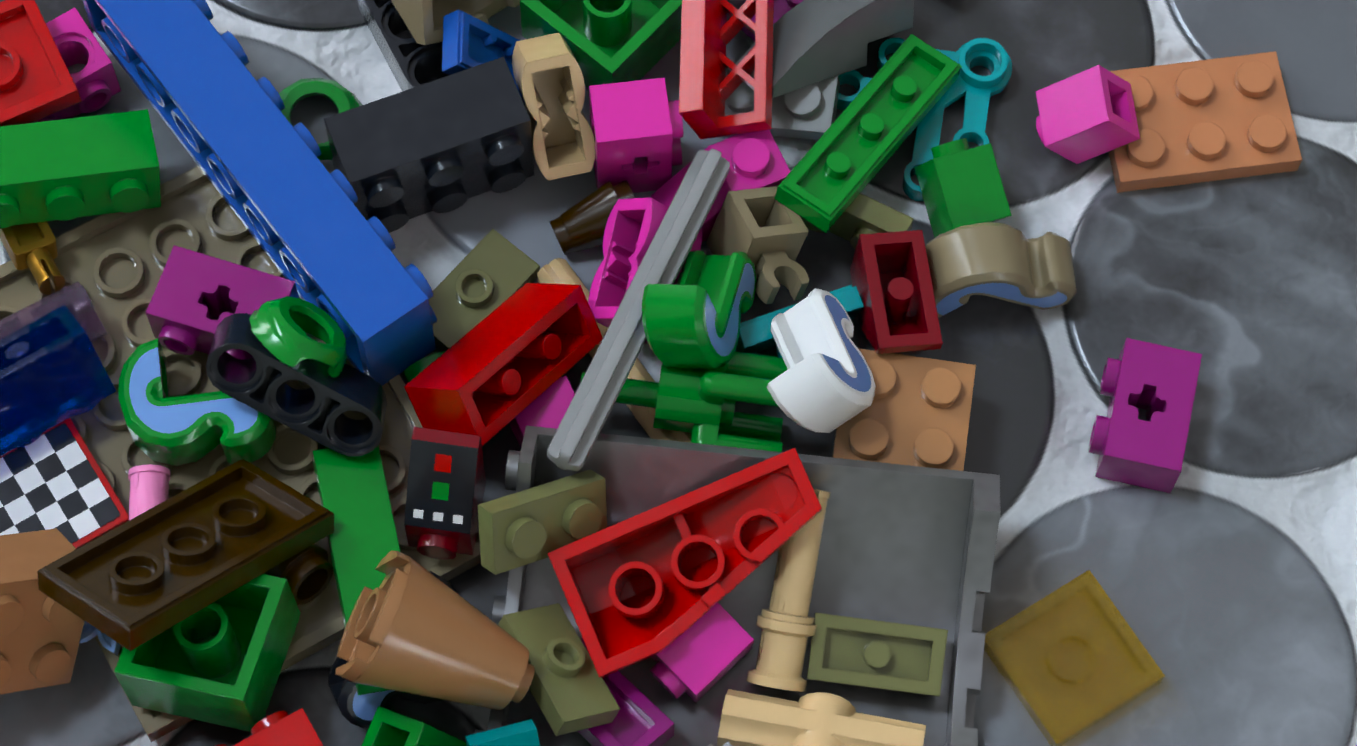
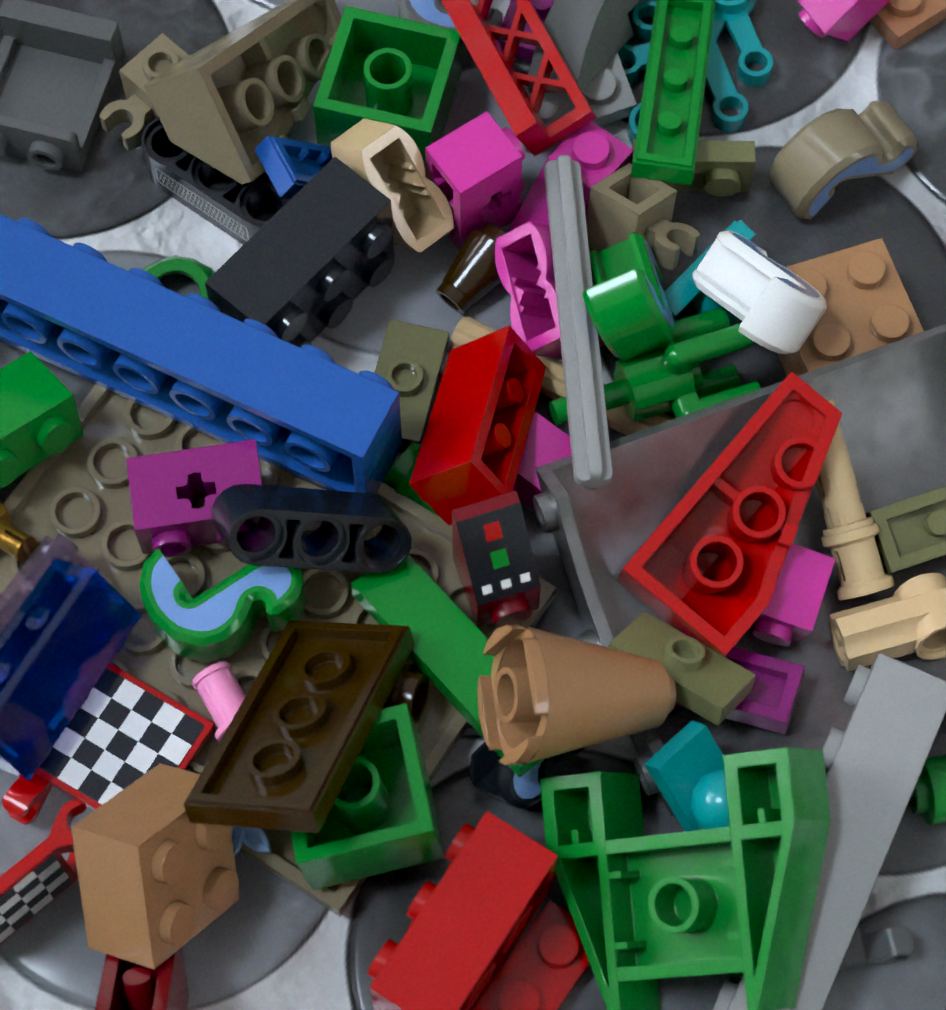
camera: 25 degrees left, 0 degrees up
(282, 329) = (294, 479): green piece -> none
(540, 520) = (599, 544): olive plate -> none
(896, 292) = (778, 208): dark red slope -> none
(961, 186) = (776, 99): green brick -> none

